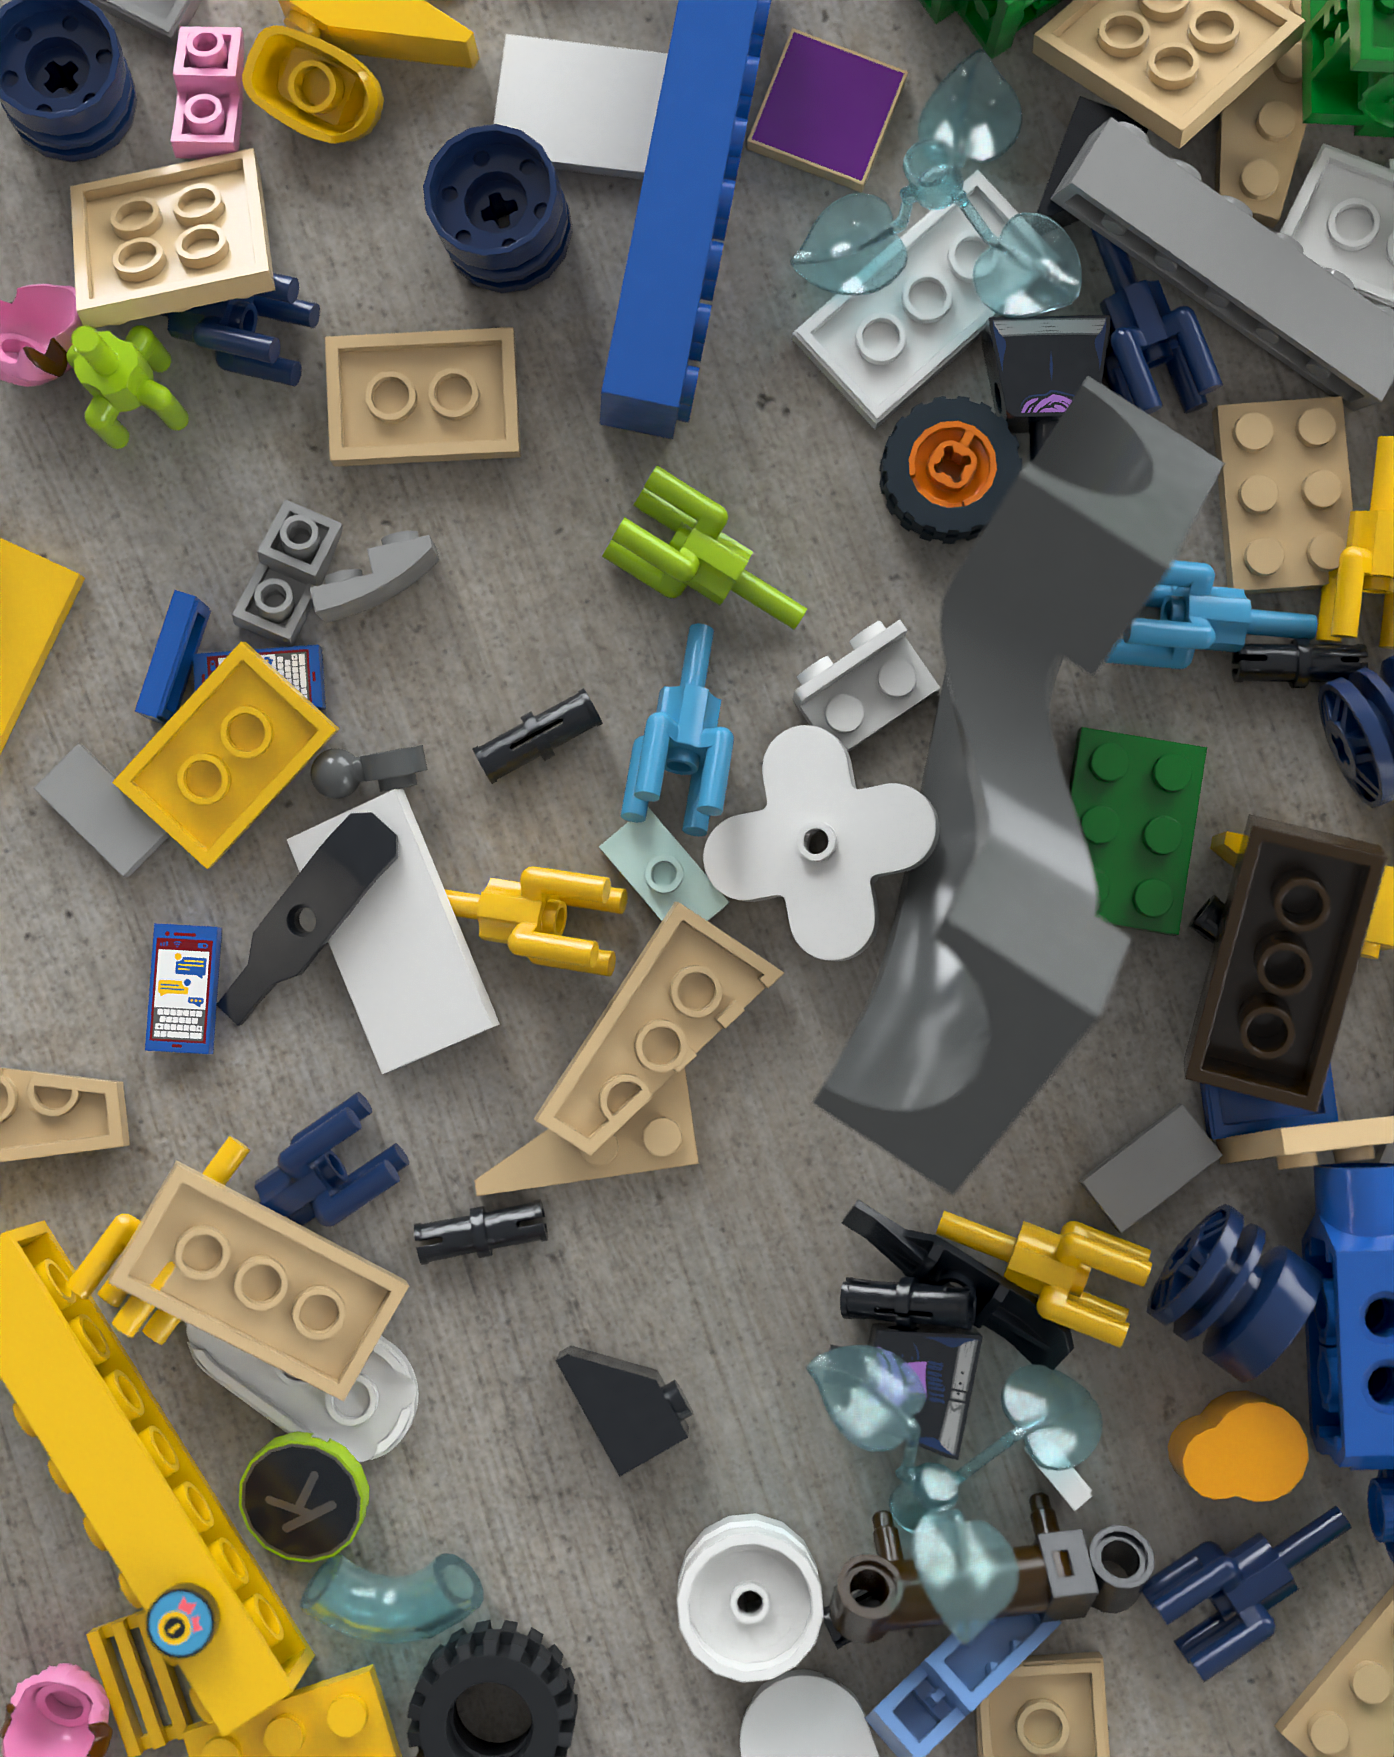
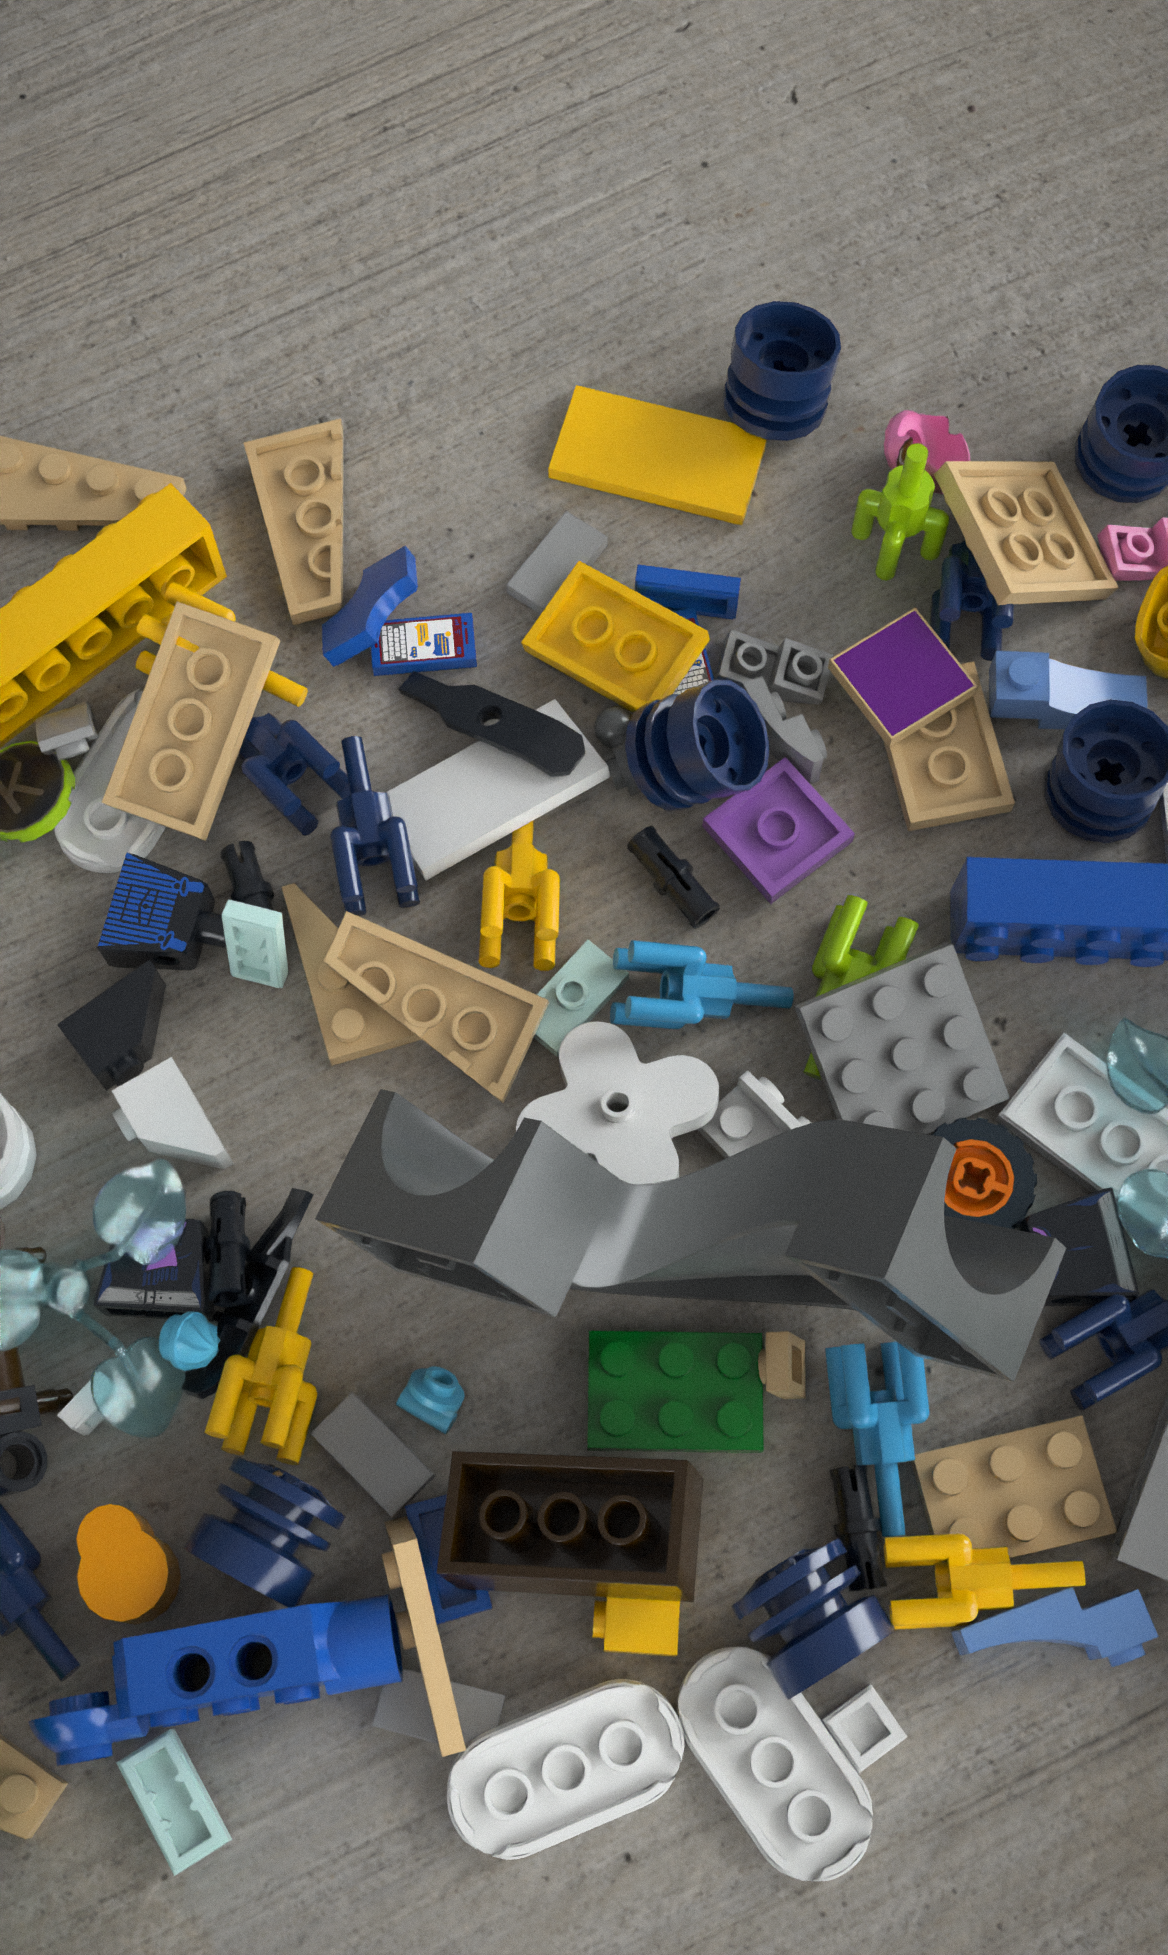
camera: 80 degrees right, 15 degrees down
(107, 1028) = (361, 619): none -> blue tile
(238, 1437) = (66, 731): none -> light grey slope
(335, 423) = (902, 677): none -> dark purple tile
(381, 241) = (1053, 692): none -> medium blue slope
(394, 678) = (697, 745): none -> dark blue wheel
(432, 1083) = (369, 836): none -> dark blue plant
(496, 1341) = (159, 918): none -> black torso
(498, 605) = (778, 830): none -> medium lavender plate
(556, 1233) = (255, 943): none -> light aqua plate
(742, 1355) = (168, 1117): none -> white slope
(796, 514) = (904, 1045): none -> light grey plate
(1012, 1355) = (188, 1341): none -> medium azure plate
(1098, 1094) = (432, 1397): none -> medium azure plate
(1123, 710) = (783, 1365): none -> tan plate

